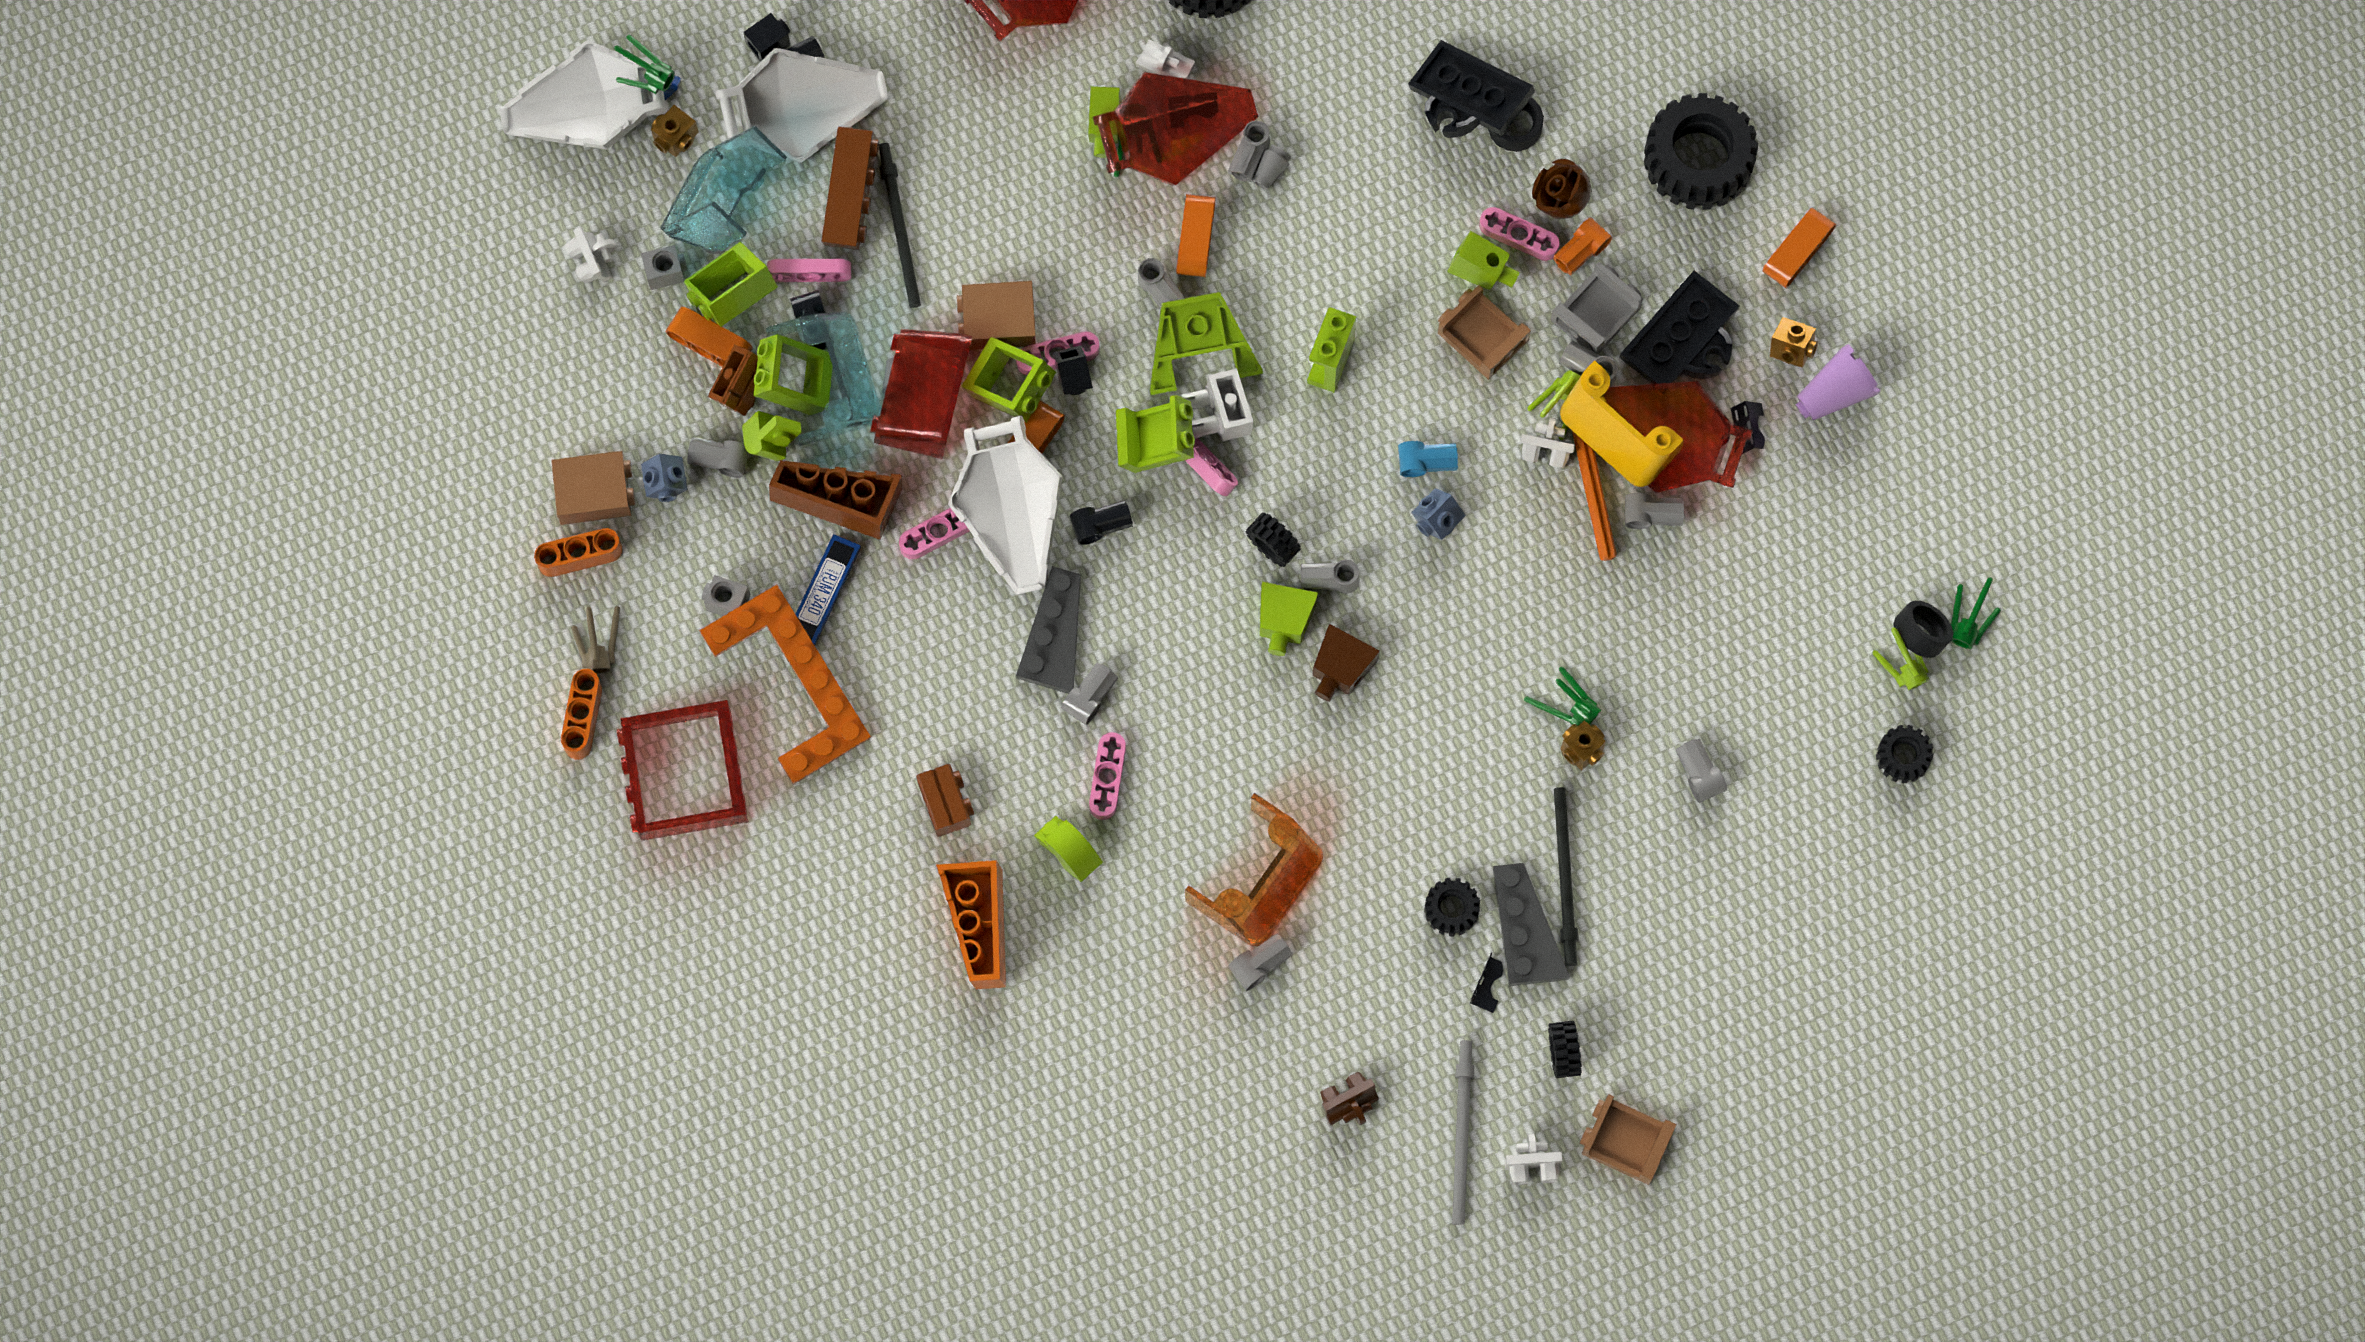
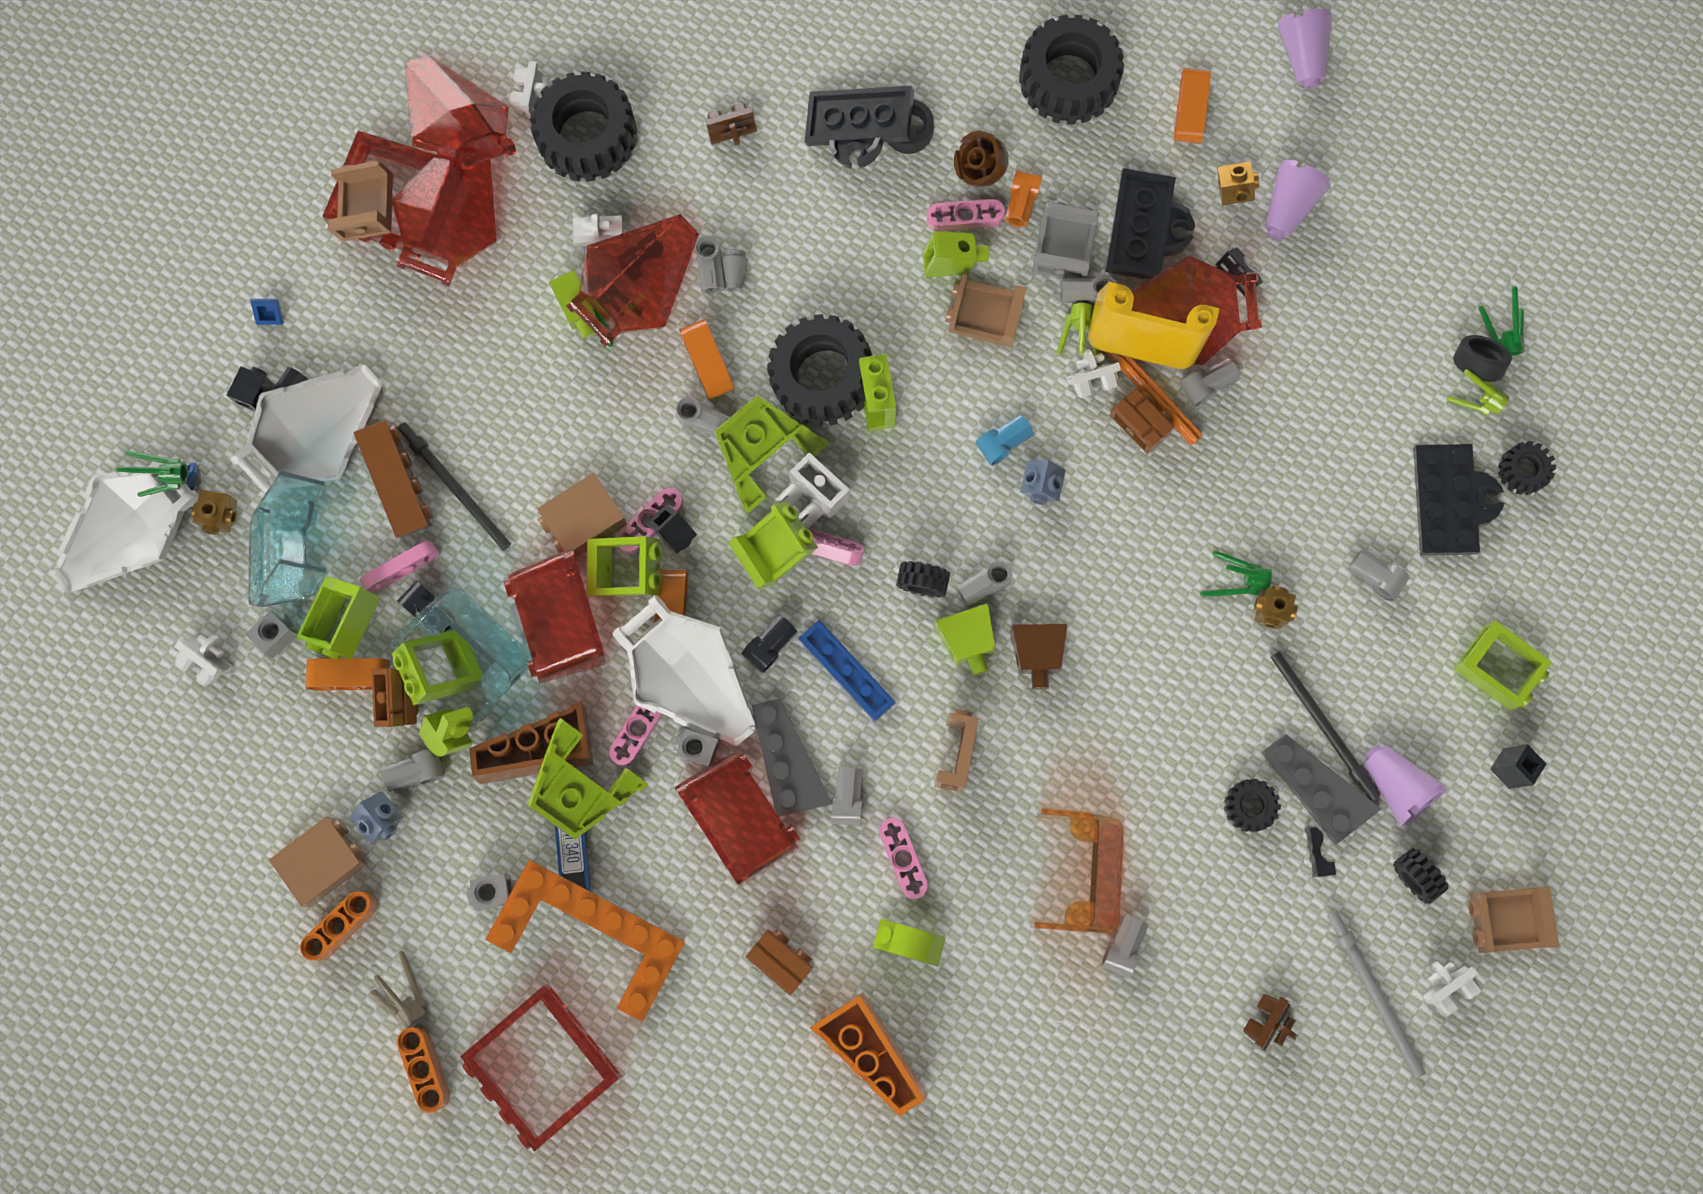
camera: 30 degrees left, 5 degrees up
(843, 551) = (568, 795): none -> lime wing
(980, 656) = (737, 818): none -> clear red windscreen
(981, 588) = (707, 754): none -> light grey brick
(1156, 585) = (847, 671): none -> blue tile
(1198, 729) = (957, 780): none -> medium nougat panel
(1282, 269) = (796, 347): none -> black tyre
(1348, 32) = (730, 125): none -> reddish brown hips
(1566, 511) = (1142, 420): none -> dark orange brick
(1600, 965) = (1402, 784): none -> lavender cone
(1717, 1007) = (1518, 766): none -> black brick
(1753, 887) = (1468, 666): none -> lime window
(1814, 743) = (1451, 499): none -> black plate
(1944, 250) = (1307, 44): none -> lavender cone

